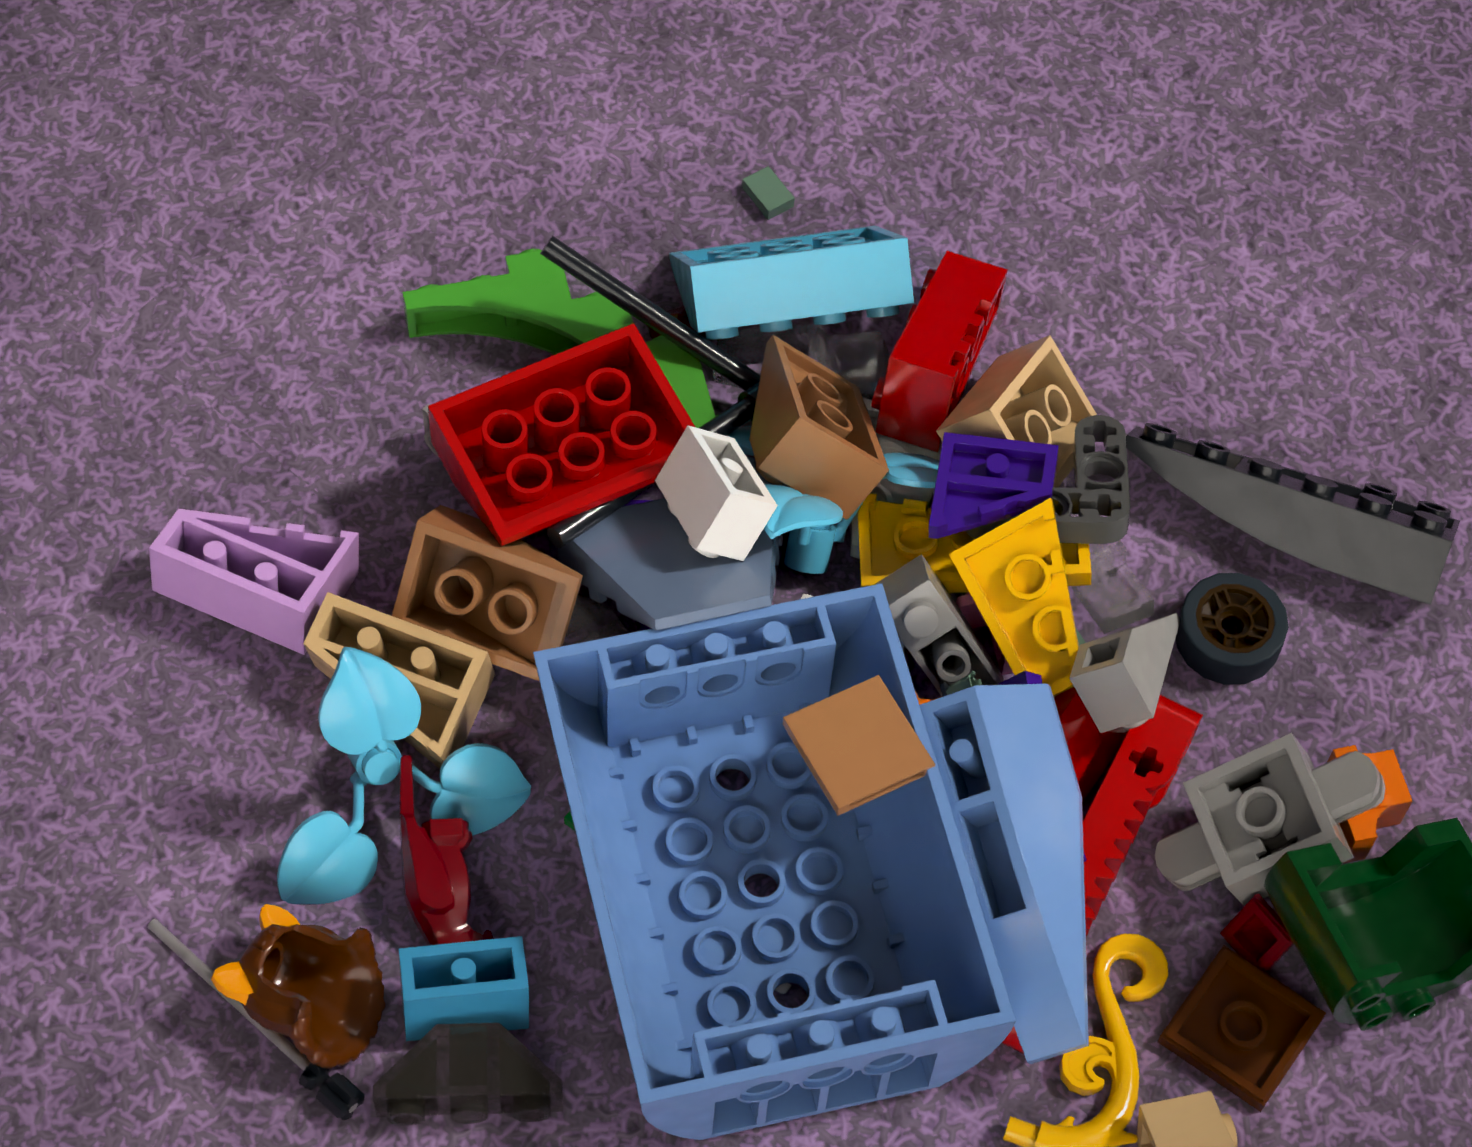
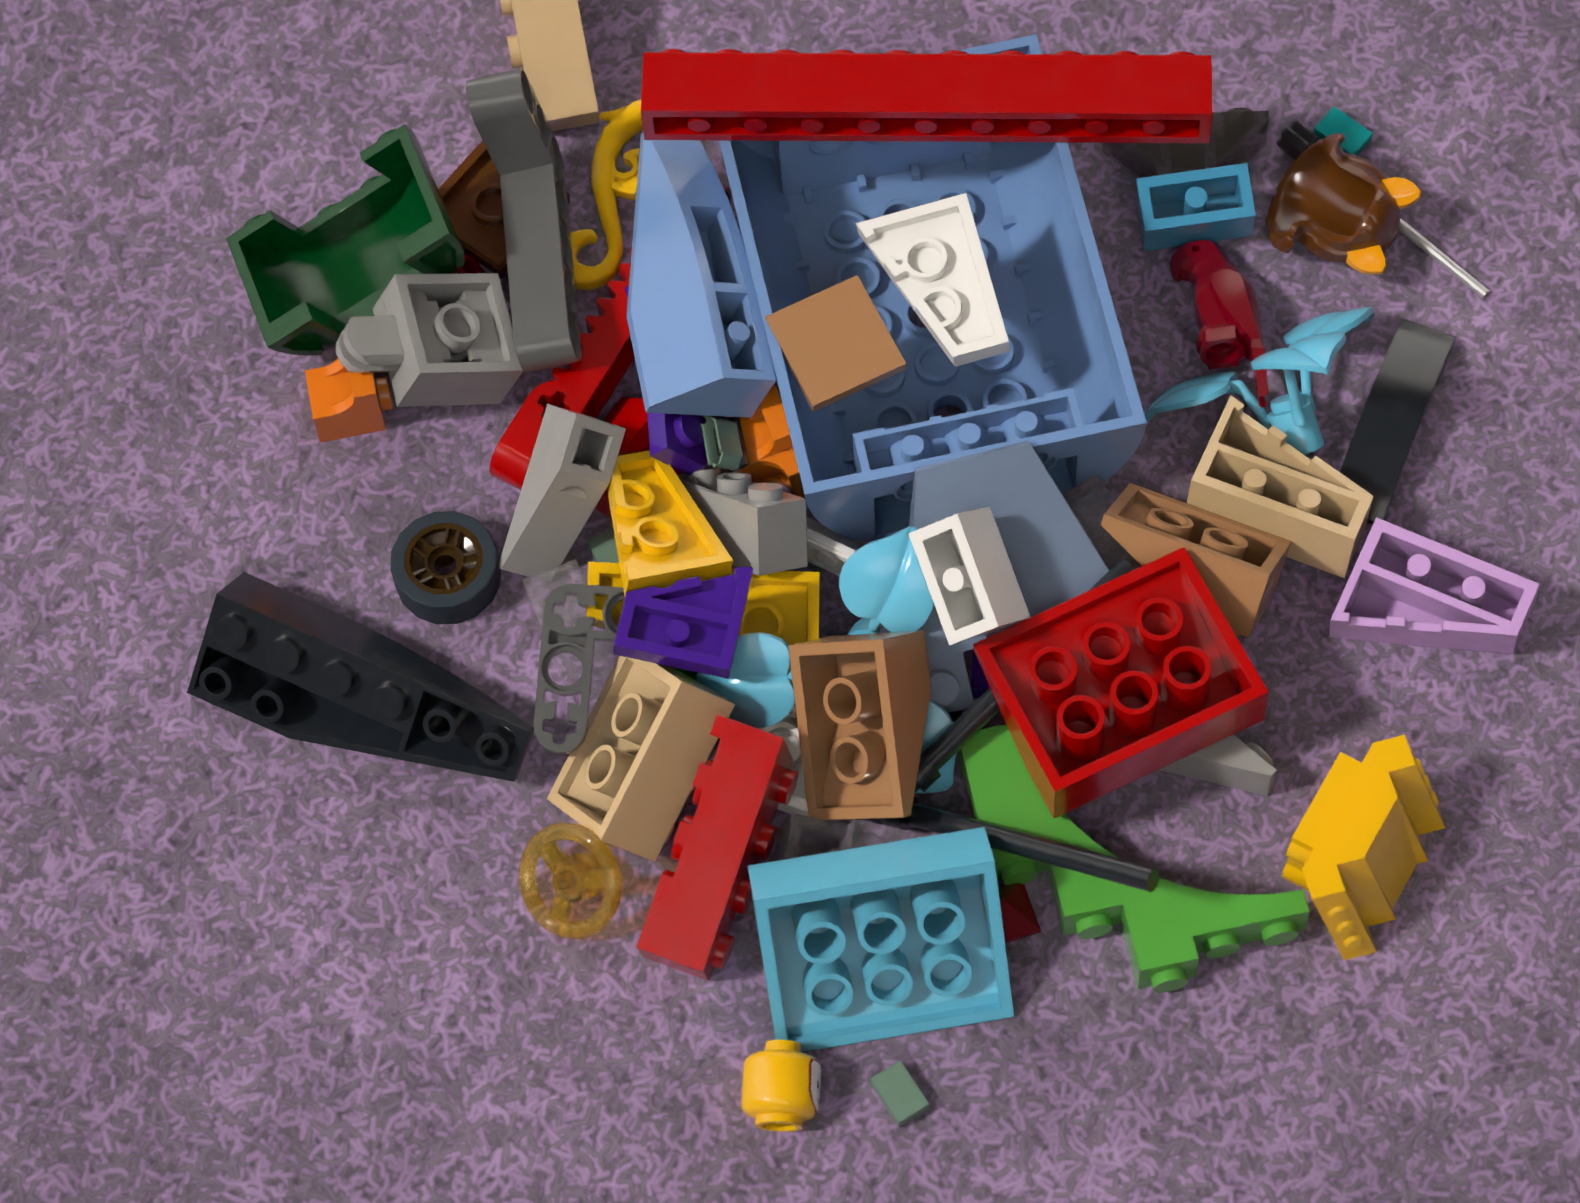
camera: 170 degrees left, 5 degrees up
(261, 787) = (1395, 411): none -> black slope
(288, 1111) = (1336, 121): none -> teal piece
(357, 355) = (1363, 840): none -> yellow slope
(744, 805) = (942, 274): none -> white wing
(769, 994) = (927, 97): none -> red brick
(871, 184) = (781, 1086): none -> yellow head
(1073, 336) = (595, 872): none -> clear yellow piece
(1203, 1007) = (533, 217): none -> dark grey beam

